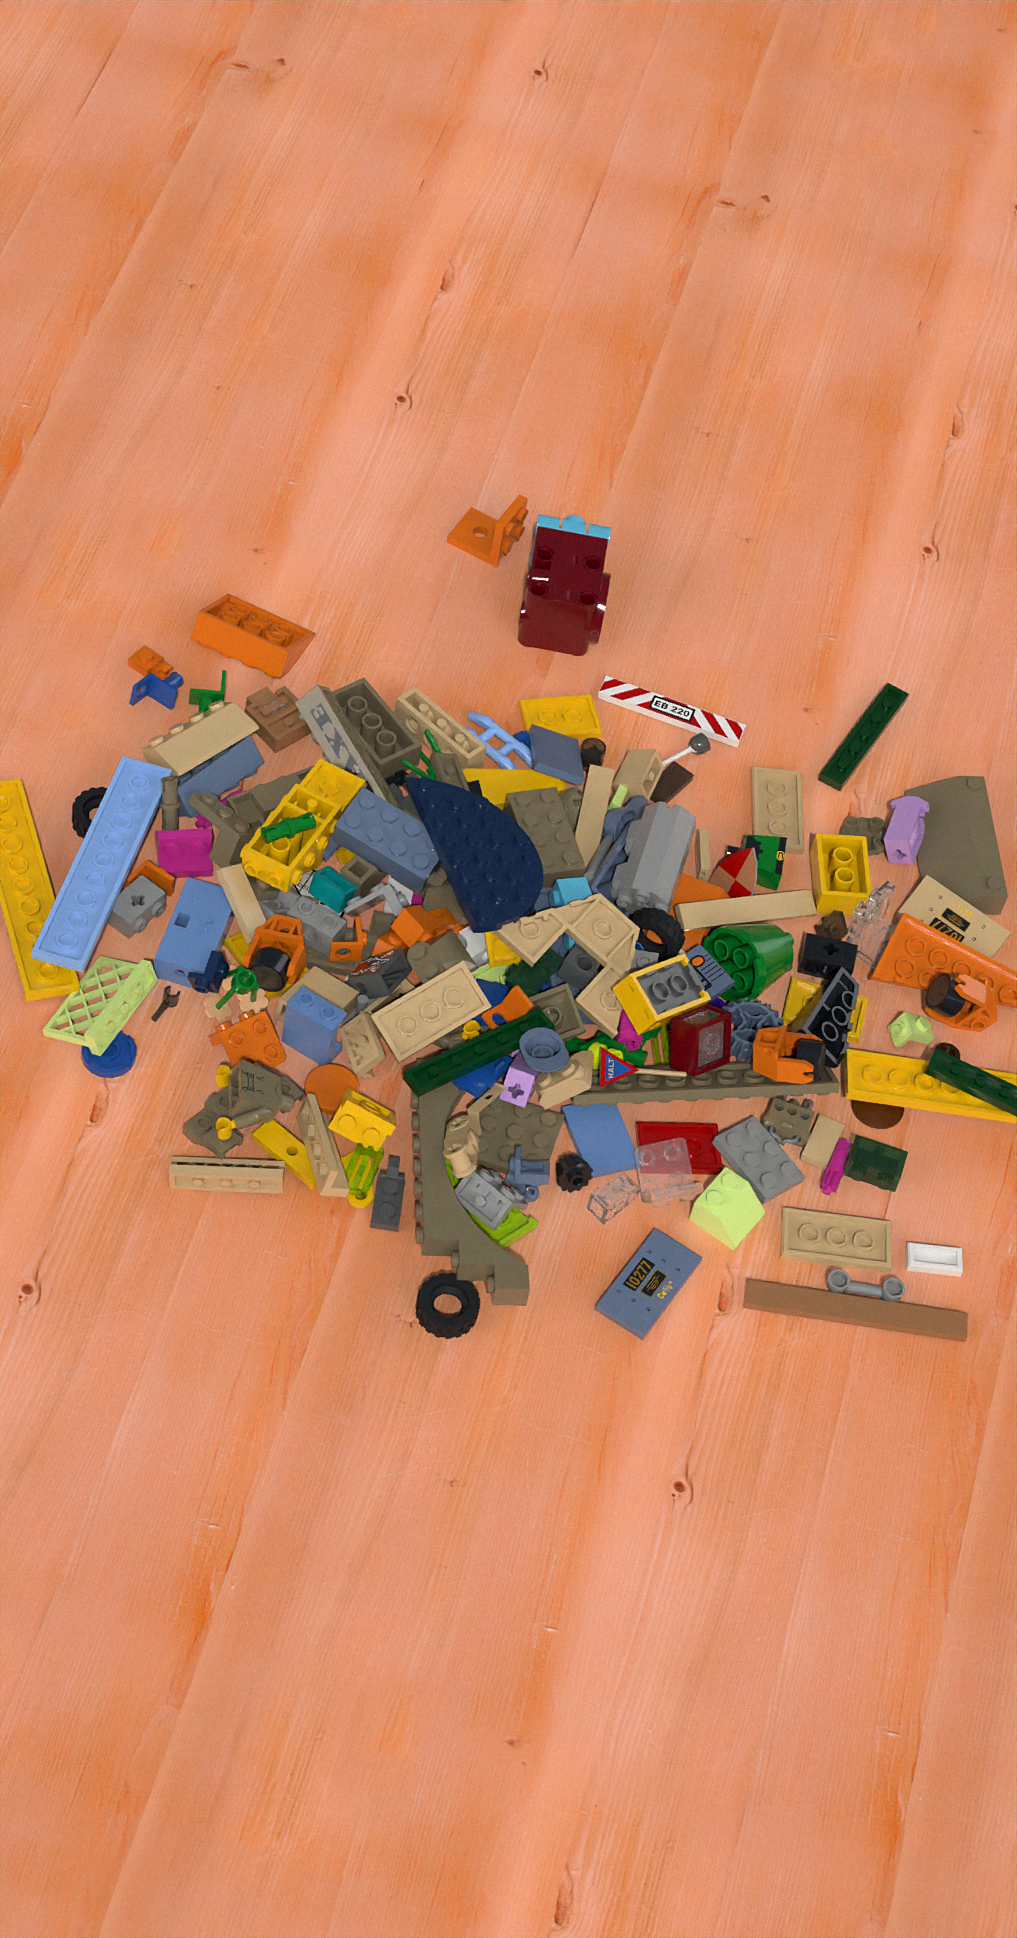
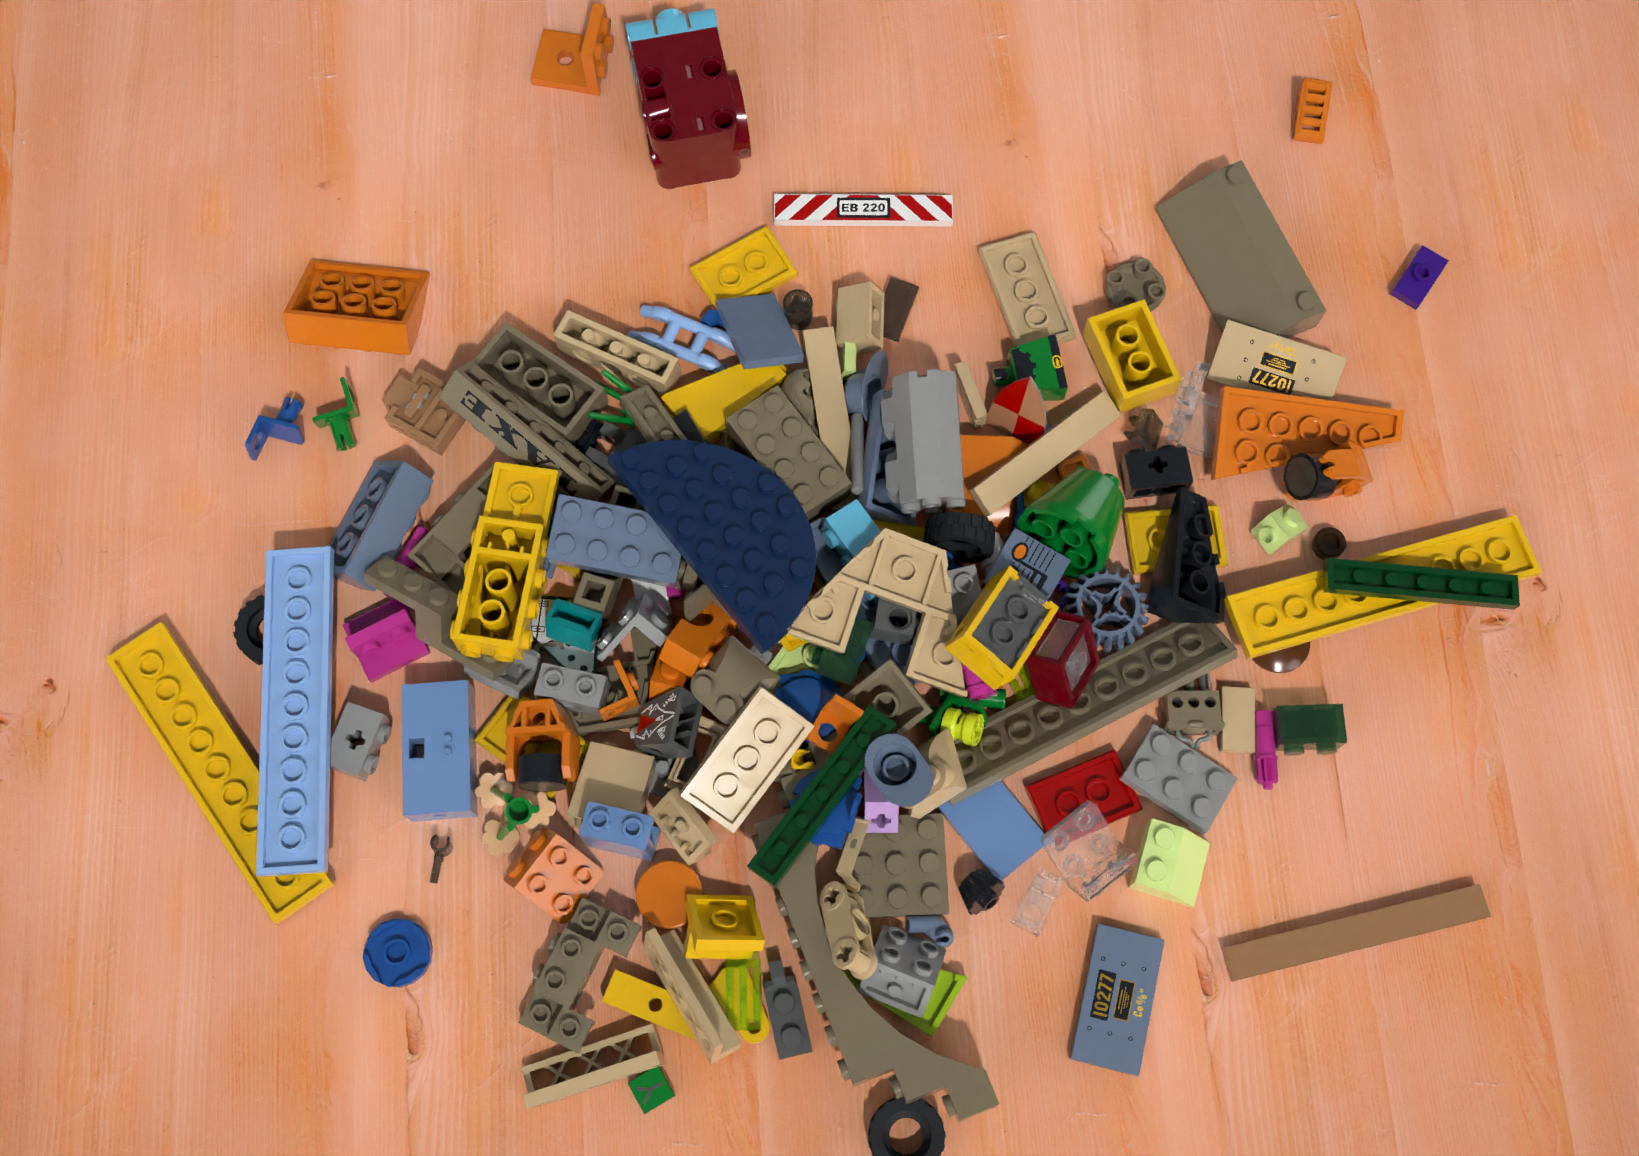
camera: 10 degrees left, 20 degrees up
(115, 1009) = (385, 897): yellowish green fence -> none
(148, 661) = (254, 393): orange plate -> none
(156, 875) = (366, 687): orange bracket -> none
(169, 803) = (344, 591): dark tan pin -> none
(199, 738) = (347, 485): tan slope -> none
(214, 973) = (480, 805): dark blue bracket -> none
(241, 899) = (476, 693): tan tile -> none
(253, 1096) = (585, 970): dark tan torso -> none
(264, 1207) = (651, 1089): none -> green tile
(288, 827) = (492, 589): green pin -> none
(529, 1172) = (934, 918): sand blue bracket -> none
(614, 1068) = (981, 742): piece -> none
(698, 745) = (909, 244): dark grey hinge -> none
(774, 1044) = (1146, 641): orange piece -> none
(836, 1240) = (1299, 845): tan tile -> none
(839, 1282) = (1383, 890): light grey bar -> none
(863, 737) = (1086, 156): dark green plate -> none
(905, 829) = (1180, 264): lavender piece -> none
(934, 1259) = (1415, 823): white tile -> none

